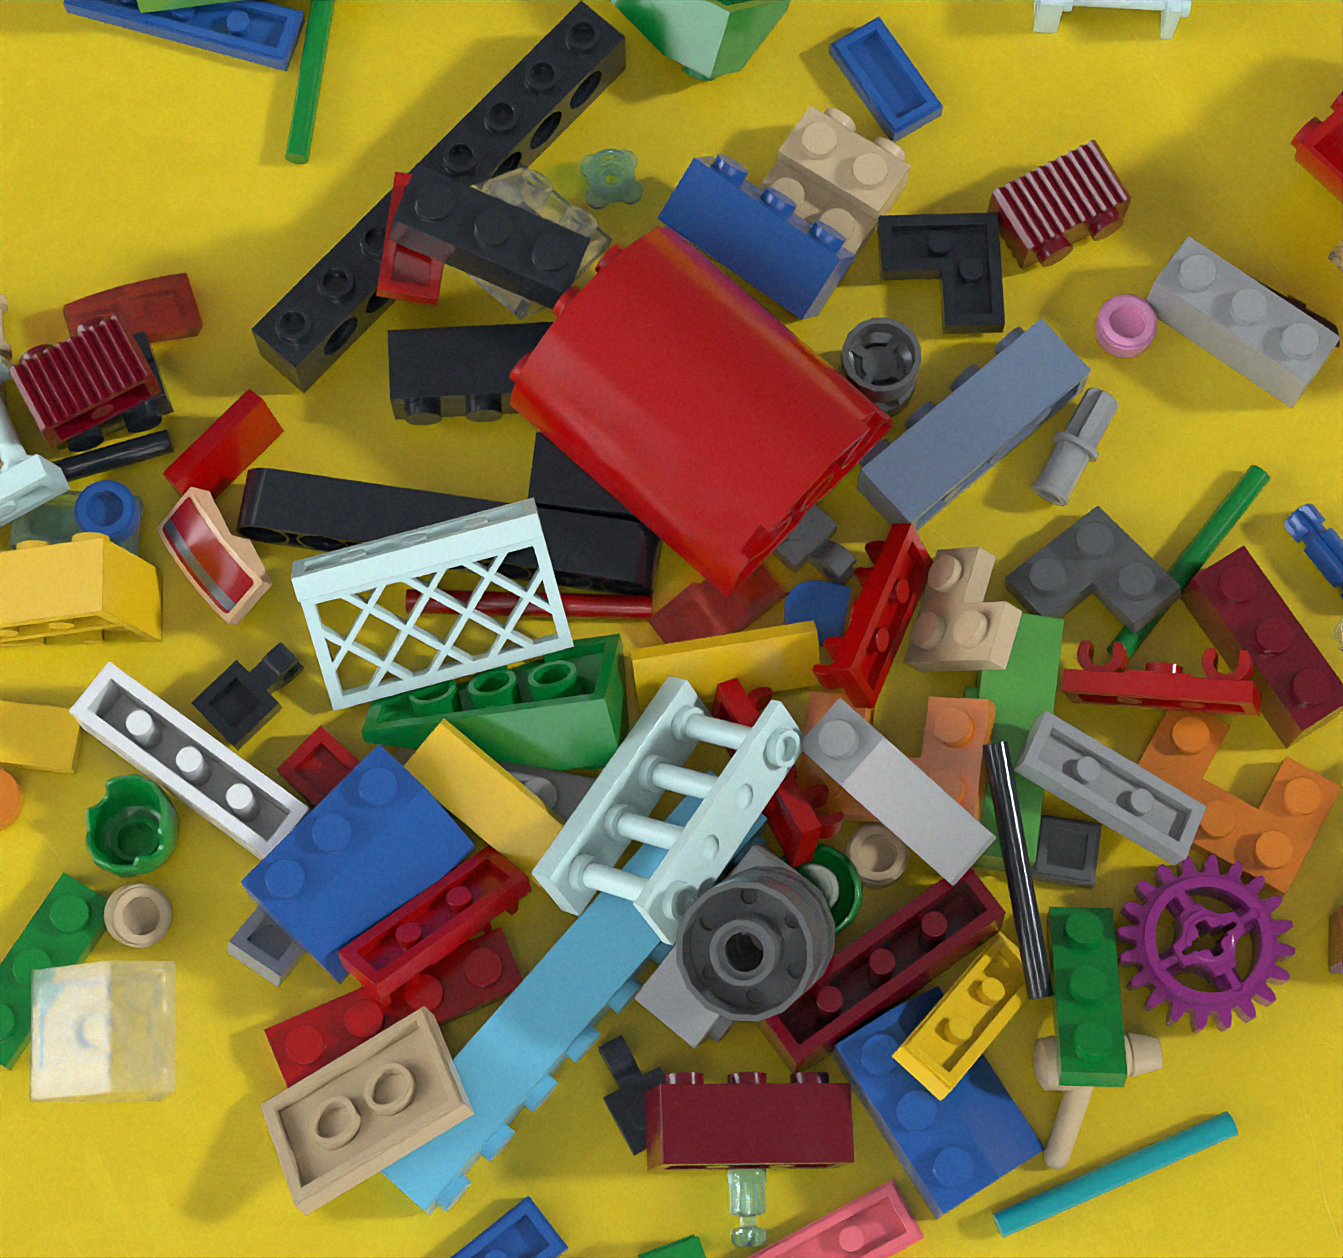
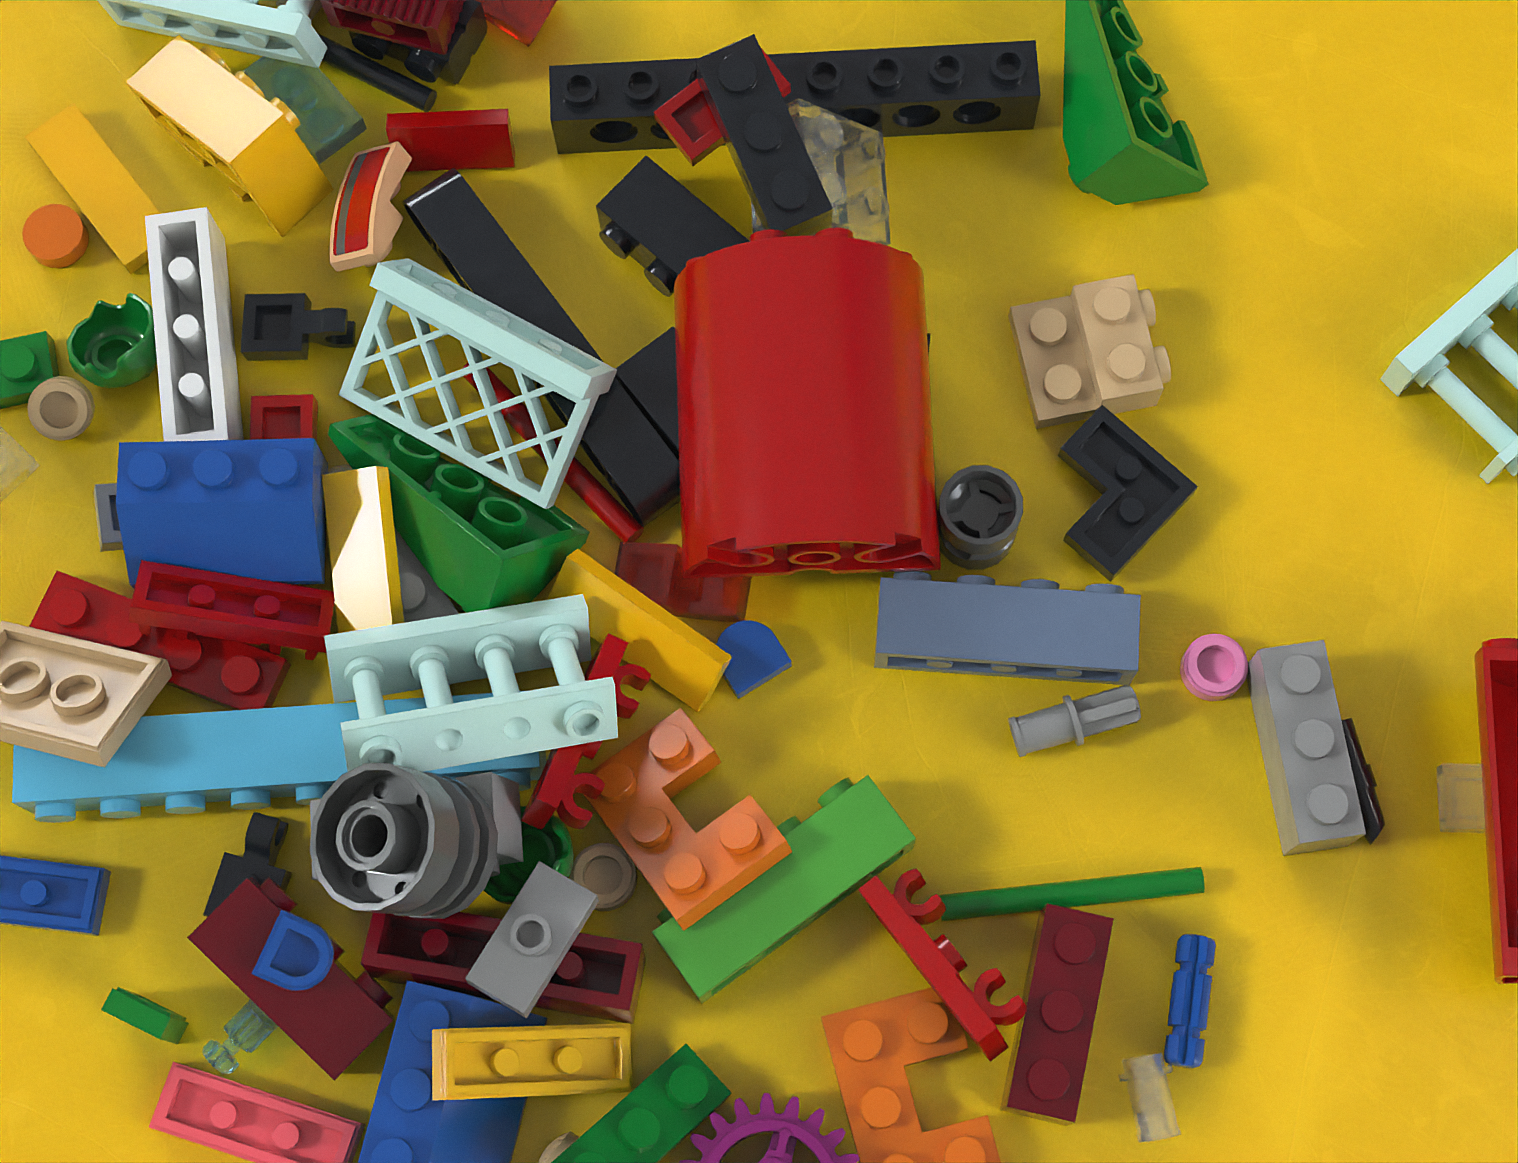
camera: 50 degrees right, 0 degrees up
(107, 509) = (325, 107): blue tile -> none
(605, 163) = (939, 181): clear light blue plate -> none
(746, 1100) = (295, 953): none -> blue tile
(757, 234) = (990, 334): blue brick -> none
(812, 544) = (798, 597): dark grey plate -> none
(877, 616) = (781, 700): red plate -> none
(885, 79) = (1221, 311): blue tile -> none
(895, 929) = (532, 939): none -> light grey plate
(896, 791) = (640, 835): light grey slope -> none
(955, 624) = (830, 764): tan plate -> none
(1018, 870) = (677, 989): black bar -> none
(1060, 206) = (1254, 527): dark red brick -> none
(1067, 851) = (745, 1015): dark grey tile -> none
(1098, 560) = (998, 820): dark grey plate -> none
(1110, 788) = (811, 999): light grey plate -> none

